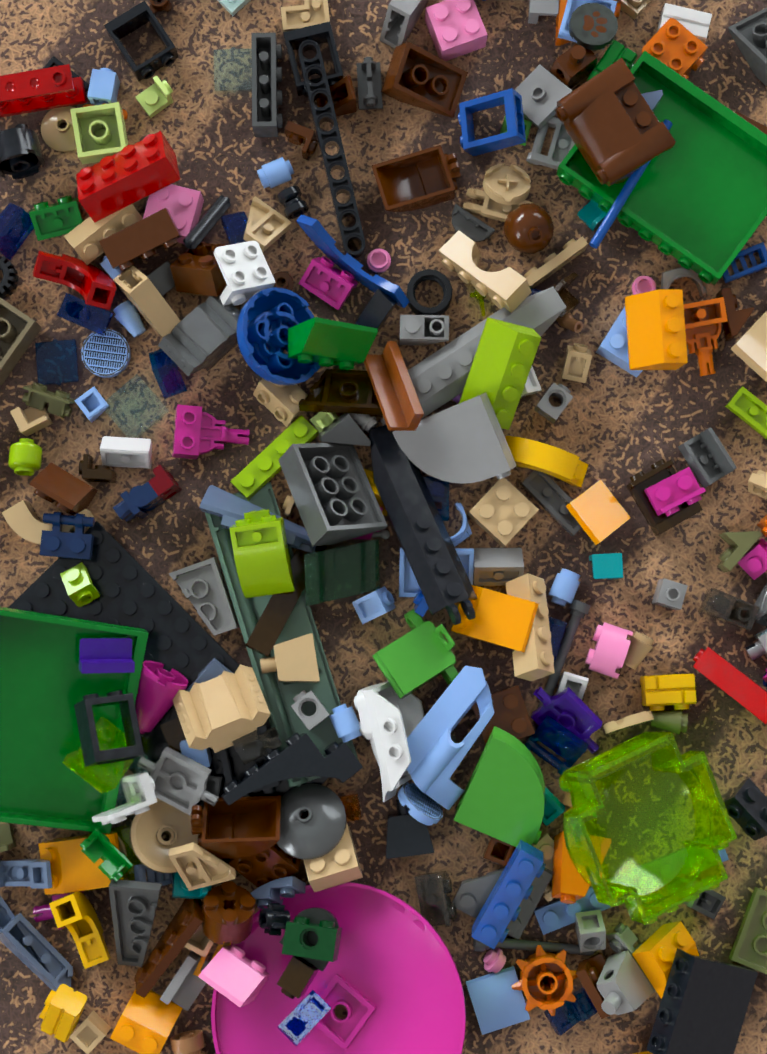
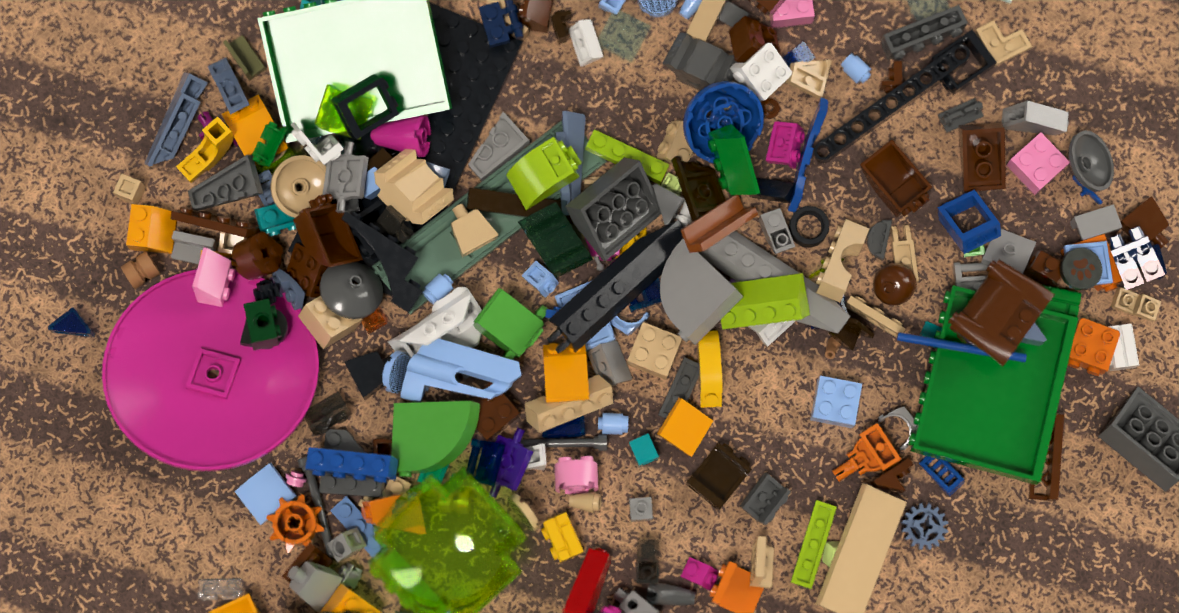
camera: 70 degrees right, 5 degrees down
(62, 1012) = (138, 162): yellow brick -> none
(79, 585) = (467, 46): lime bracket -> none
(106, 655) = (420, 83): dark purple panel -> none
(147, 496) = (556, 71): dark blue hips -> none
(167, 374) = (658, 48): clear blue slope -> none
(199, 867) = (285, 217): tan wing -> none
(201, 433) = (623, 90): dark pink brick -> none
(207, 222) = (793, 31): black axle -> none
(292, 202) = (838, 91): black wheel -> none
(297, 977) = (228, 325): dark brown brick -> none
(304, 1018) = (200, 340): clear blue slope -> none
(320, 714) = (434, 265): light grey brick -> none
(342, 97) = (939, 96): reddish brown slope -> none
(378, 260) = (819, 177): bright pink plate -> none
(506, 184) = (924, 254): tan tile -> none
(546, 410) = (752, 363): light grey brick -> none
(572, 1012) = (276, 554): clear blue slope -> none
(577, 363) = (801, 365): tan bracket -> none
(643, 284) = (886, 397): bright pink plate -> none
(656, 330) = (849, 412): light orange slope -> none
(671, 721) = (538, 549): olive cone -> none
(673, 491) = (726, 482): dark pink bracket -> none
(740, 544) = (706, 554): olive slope -> none

